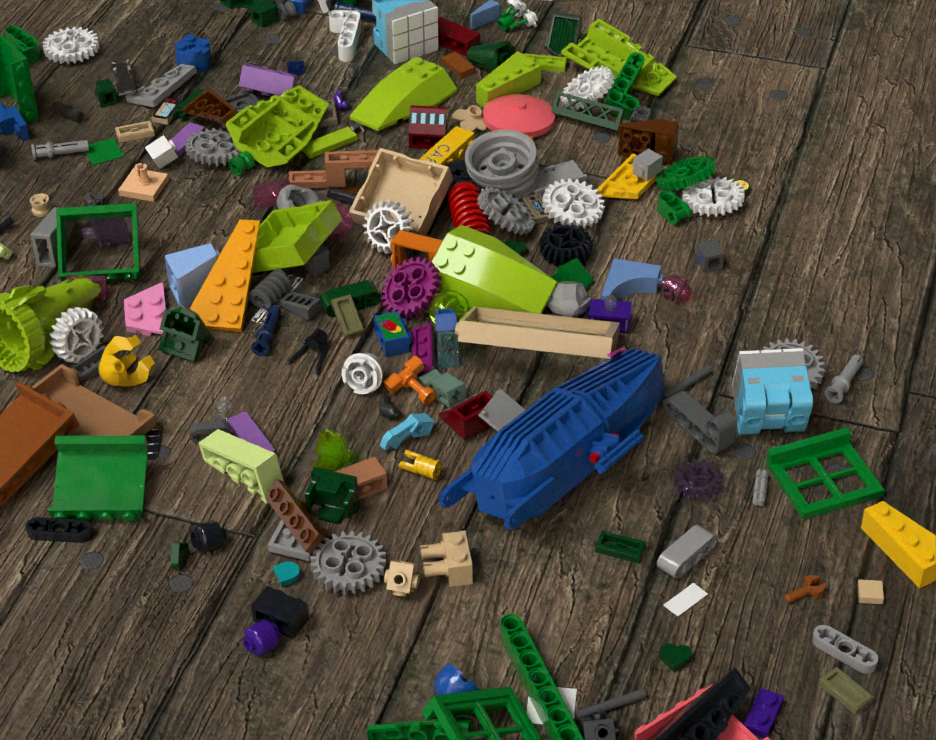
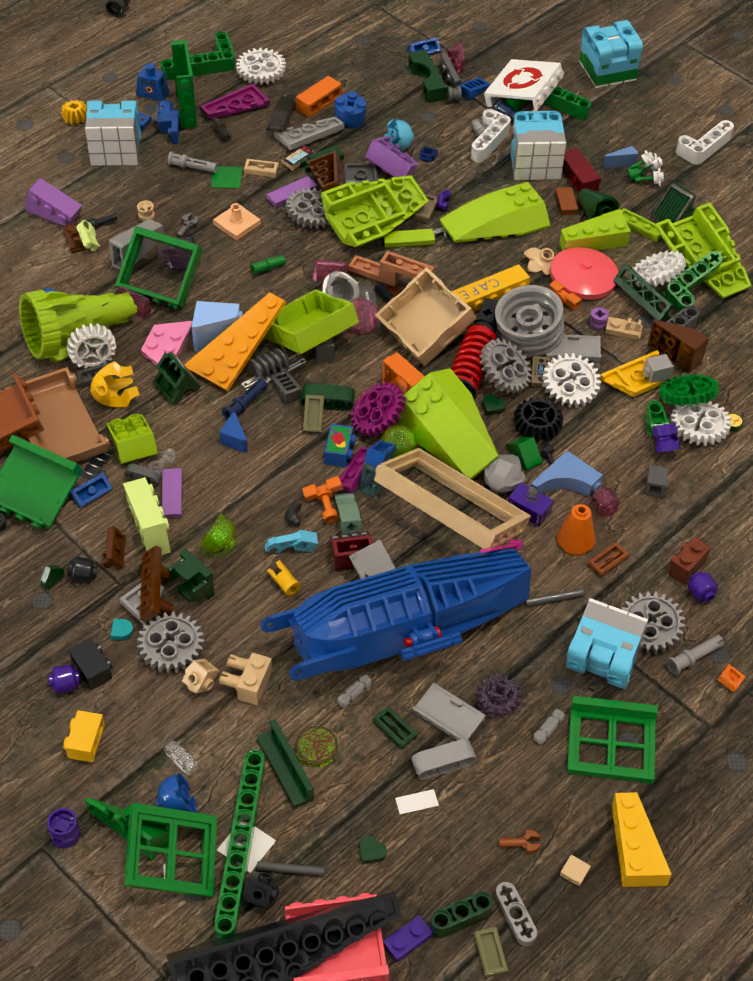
camera: 25 degrees right, 10 degrees up
(68, 82) = (237, 101): none -> magenta wing
(106, 93) = (259, 122): dark green brick -> none
(150, 53) = (318, 96): none -> orange brick
(162, 151) = (265, 197): white brick -> none
(163, 466) = (90, 490): none -> blue slope
(175, 403) = (132, 438): none -> lime slope
(204, 209) = (268, 264): none -> green pin
(230, 508) = (115, 548): none -> reddish brown plate
(240, 164) = (323, 232): green wheel -> none
(258, 54) = (400, 133): none -> medium azure cylinder
(280, 362) = (233, 435): none -> blue slope
(315, 341) = (275, 426): black plant -> none
(322, 677) = (84, 736): none -> yellow brick
(331, 32) = (478, 127): none -> light grey pin
(363, 372) = (290, 473): white cone -> none
(370, 476) = (229, 570): nougat brick -> none
(383, 212) = (396, 332): white gear -> none
(427, 126) = (493, 255): dark red slope -> none
(432, 655) = (181, 758): none -> clear beam
(542, 621) = (286, 766): none -> dark green fence
(557, 592) = (316, 746): none -> tile
(559, 532) = (354, 690): none -> light grey axle
(560, 147) = (598, 318): none -> medium lavender wheel
(587, 148) = (624, 328): none -> tan plate
(592, 269) = (547, 451): none -> black hand
(648, 515) = (447, 715): none -> light grey door
(671, 318) = (577, 531): none -> orange cone
(694, 216) = (666, 437): none -> dark purple wheel
(708, 345) = (598, 568): none -> dark orange tile
(712, 432) = (540, 653): dark grey beam -> none
(785, 307) = (689, 560): none -> copper brick
(799, 669) = (469, 907): none -> dark green beam
(813, 322) = (702, 587): none -> dark purple head
(889, 384) = (731, 678): none -> orange tile

